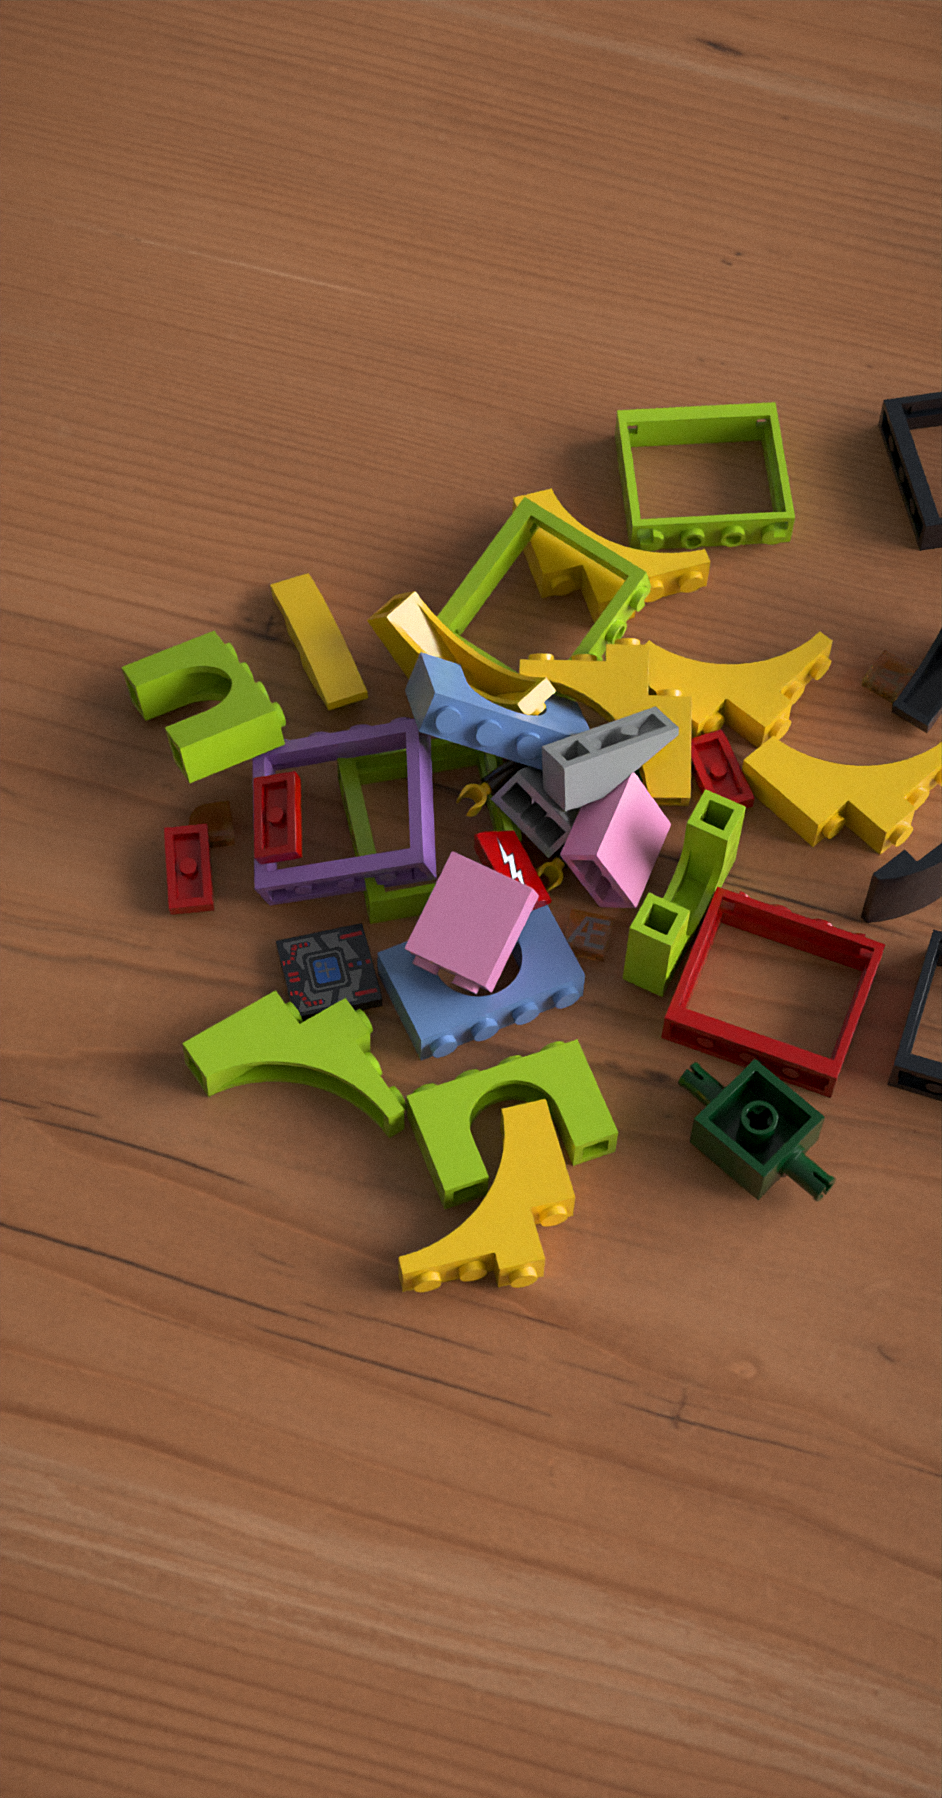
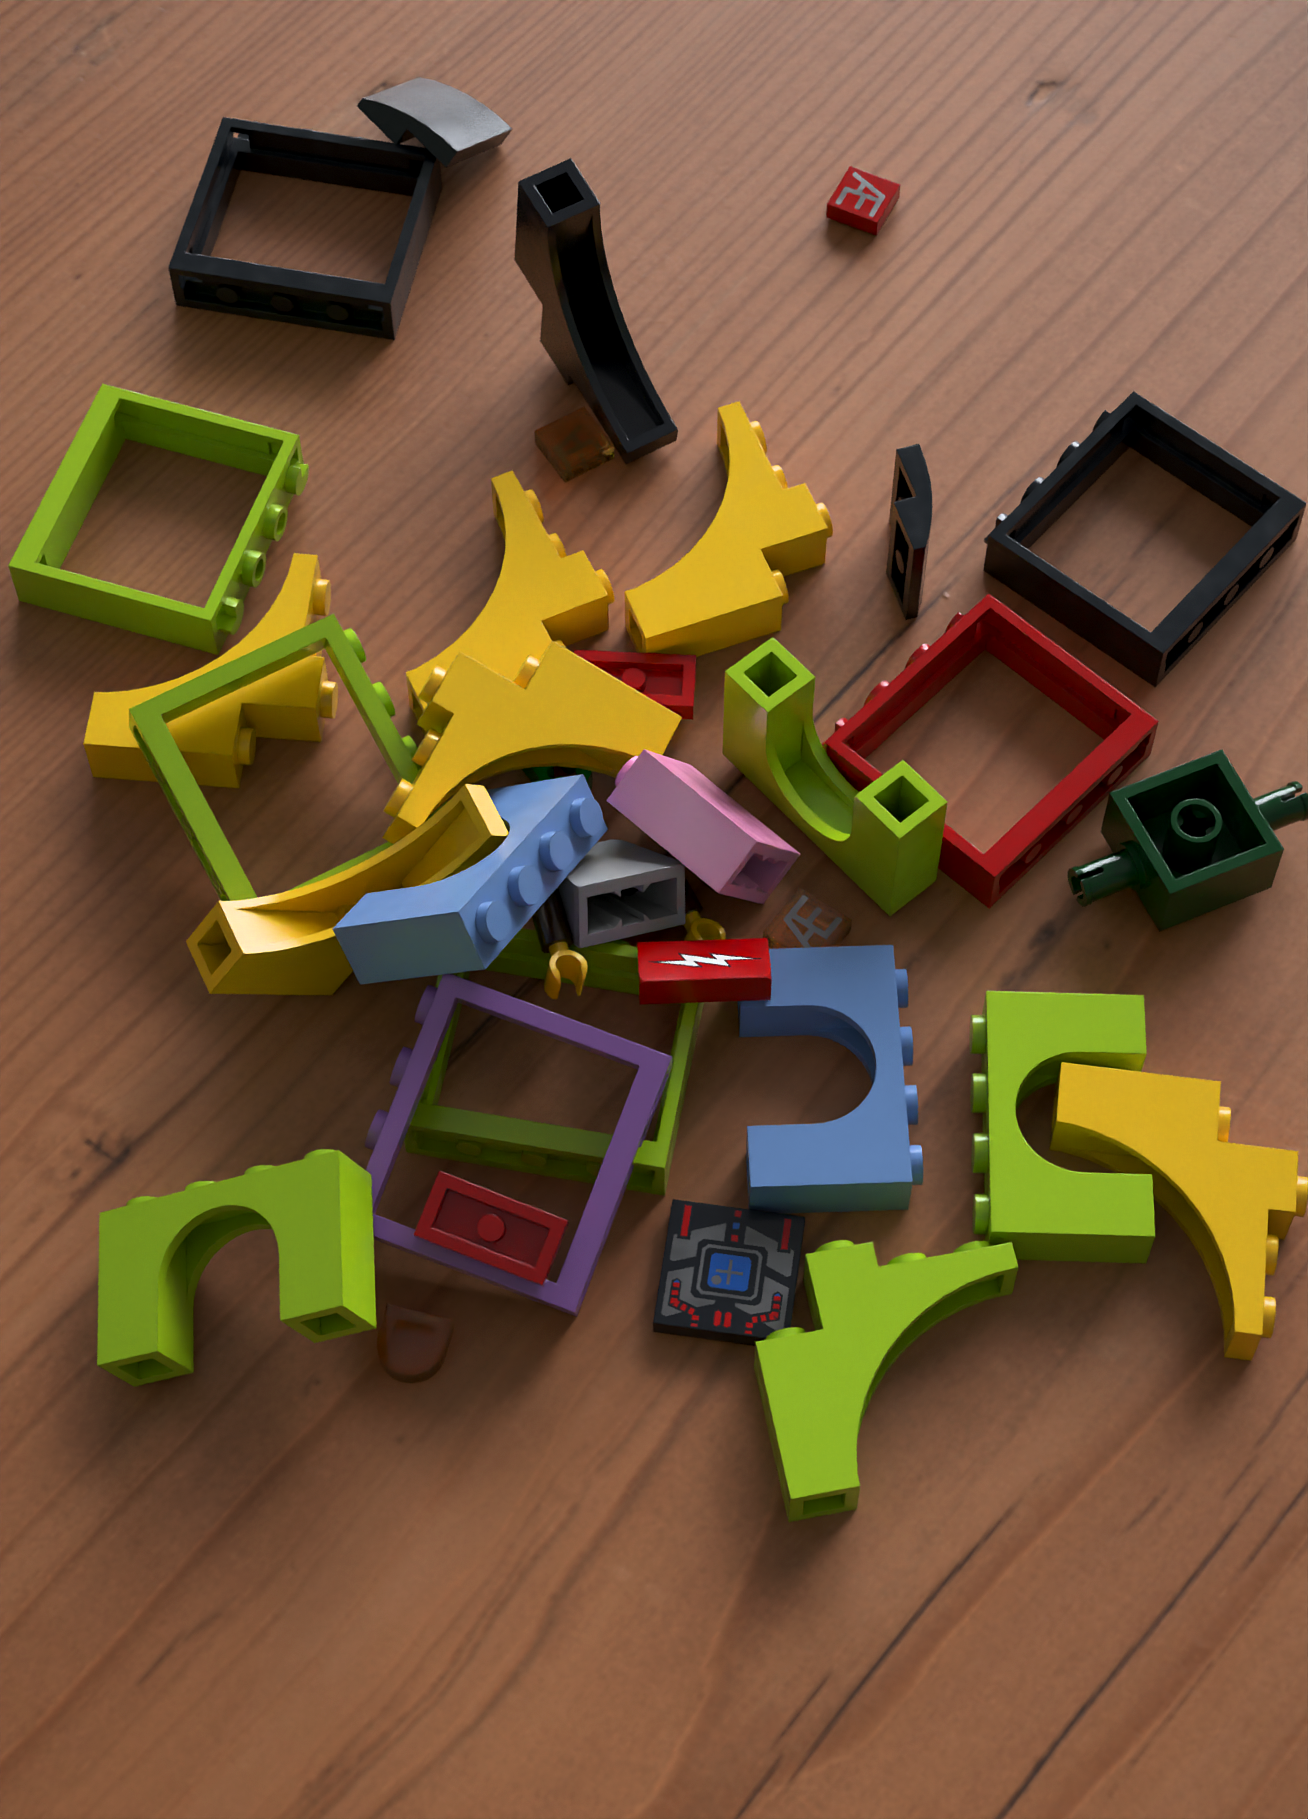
camera: 65 degrees left, 0 degrees up
(189, 869) = (483, 1397): red plate -> none
(319, 642) = (180, 1082): yellow slope -> none
(470, 923) = (788, 1038): bright pink brick -> none
(601, 758) = (614, 770): light grey slope -> none

